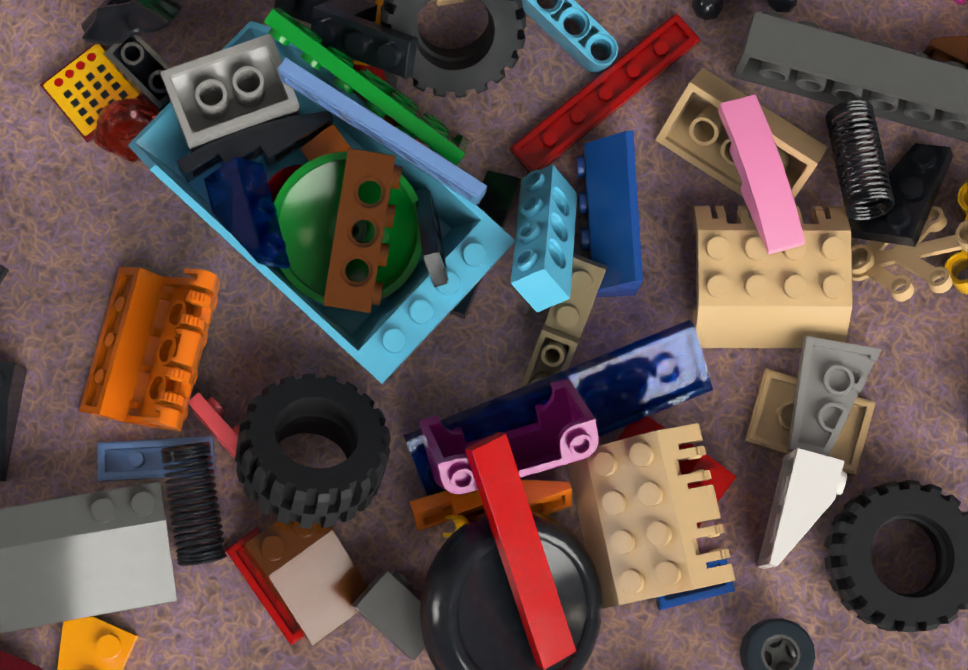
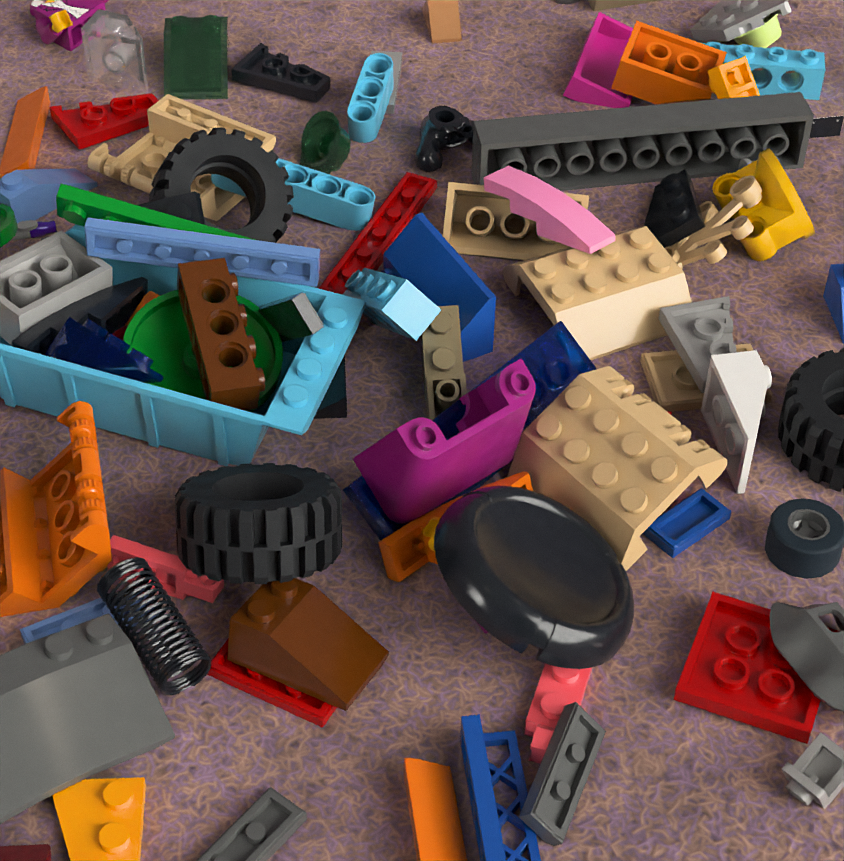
camera: 25 degrees left, 35 degrees down
(393, 611) = (421, 640): dark grey brick -> none
(520, 549) = (517, 492): tile -> none
(857, 127) = (628, 216): black piece -> none

